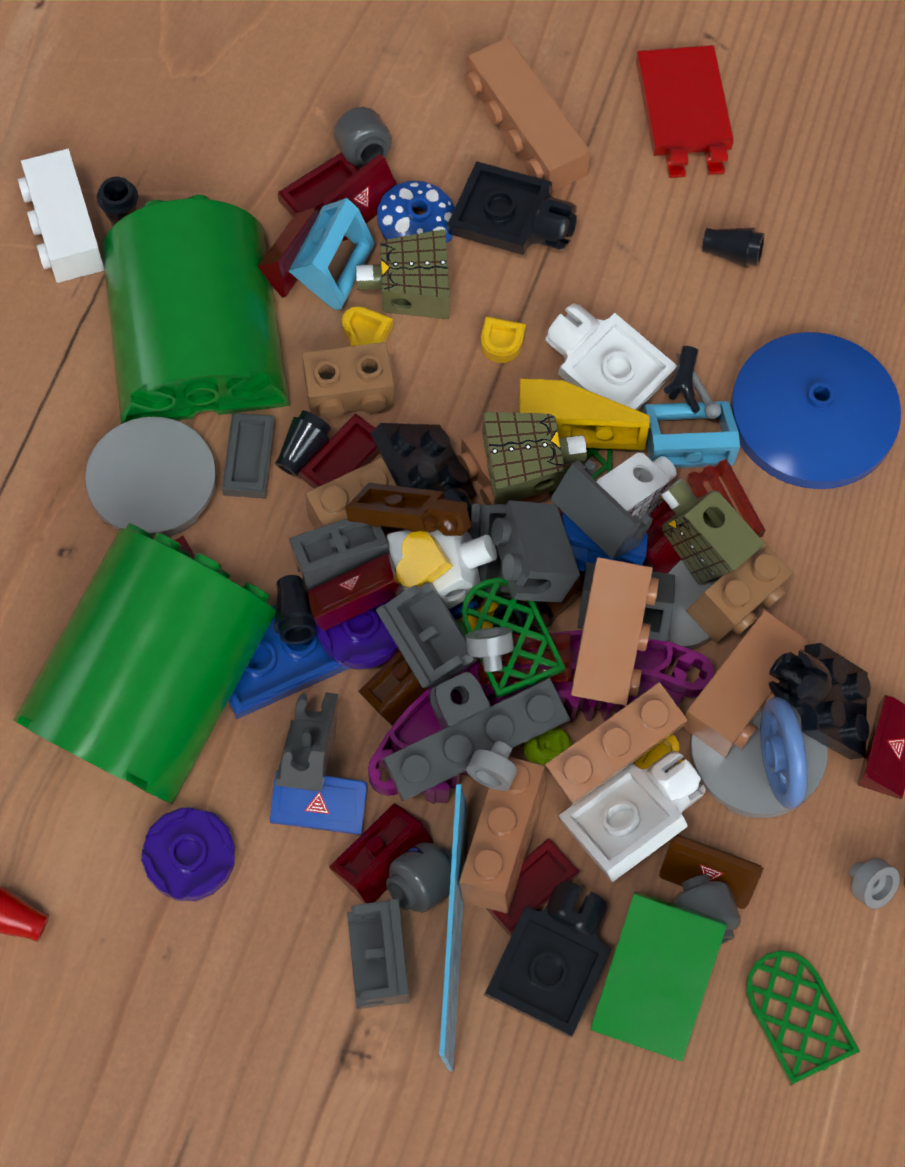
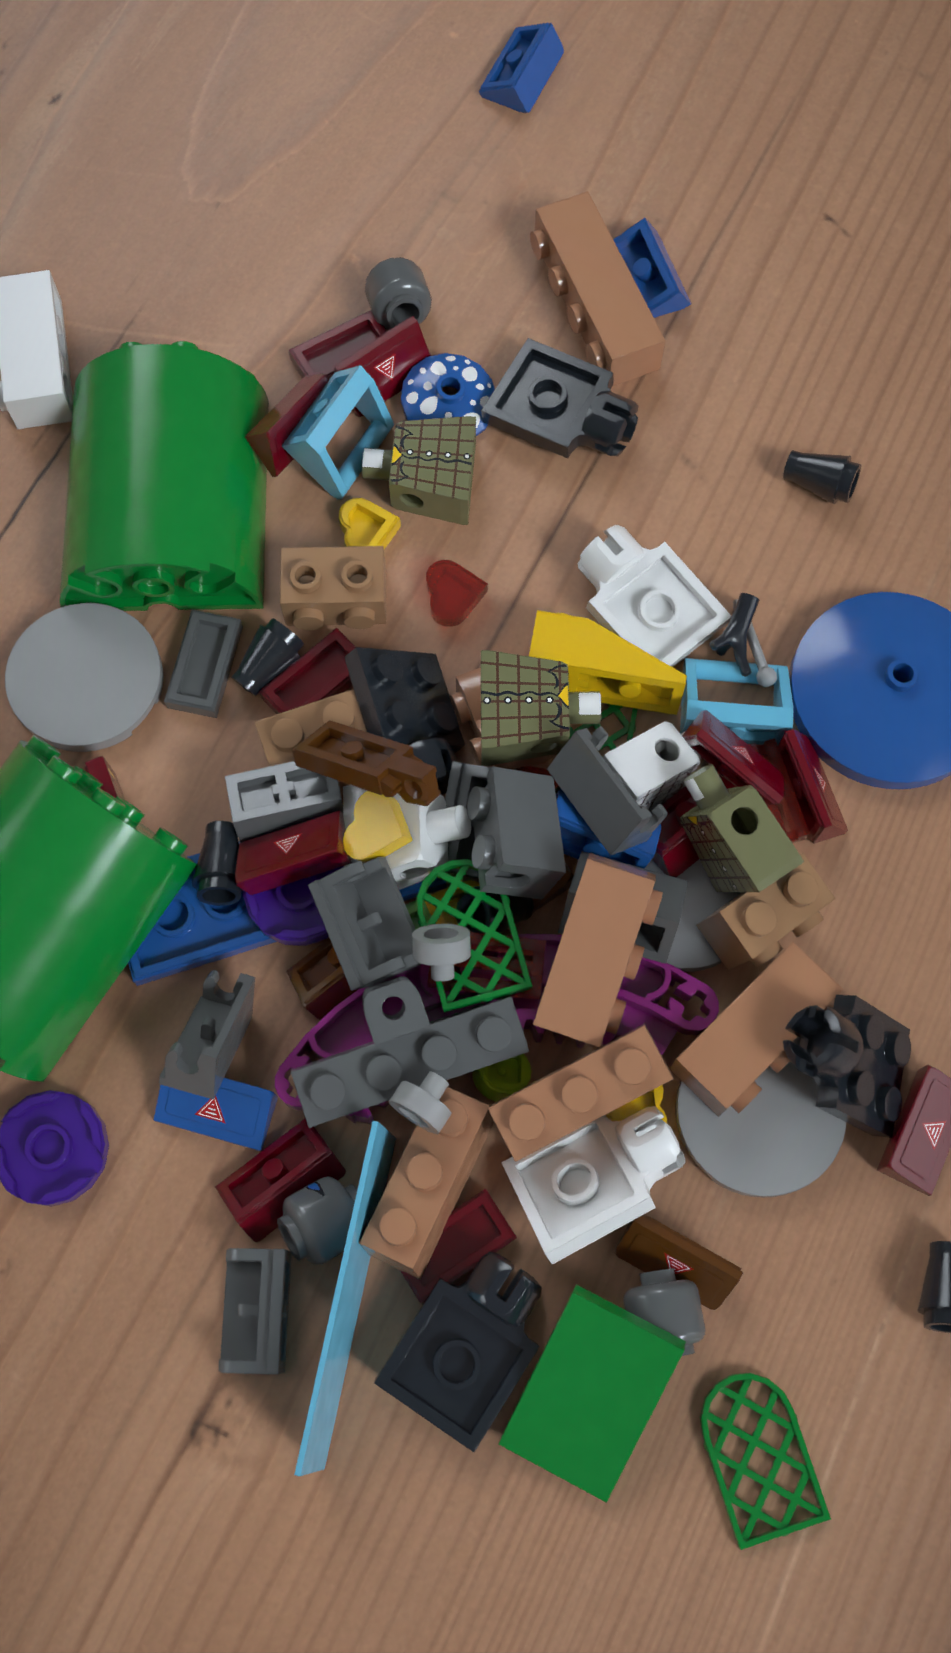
camera: 10 degrees right, 5 degrees up
(117, 198) = (94, 333): black cone -> none
(446, 373) = (453, 592): none -> clear red tile
(501, 339) = (526, 558): yellow tile -> none
(569, 93) = (652, 269): none -> blue slope
(685, 106) = (789, 299): red tile -> none
(698, 476) = (734, 757): none -> dark red slope
(761, 494) = (811, 787): none -> dark red slope
(783, 752) = (790, 1132): medium blue plate -> none
(874, 882) = (880, 1303): light grey tile -> none

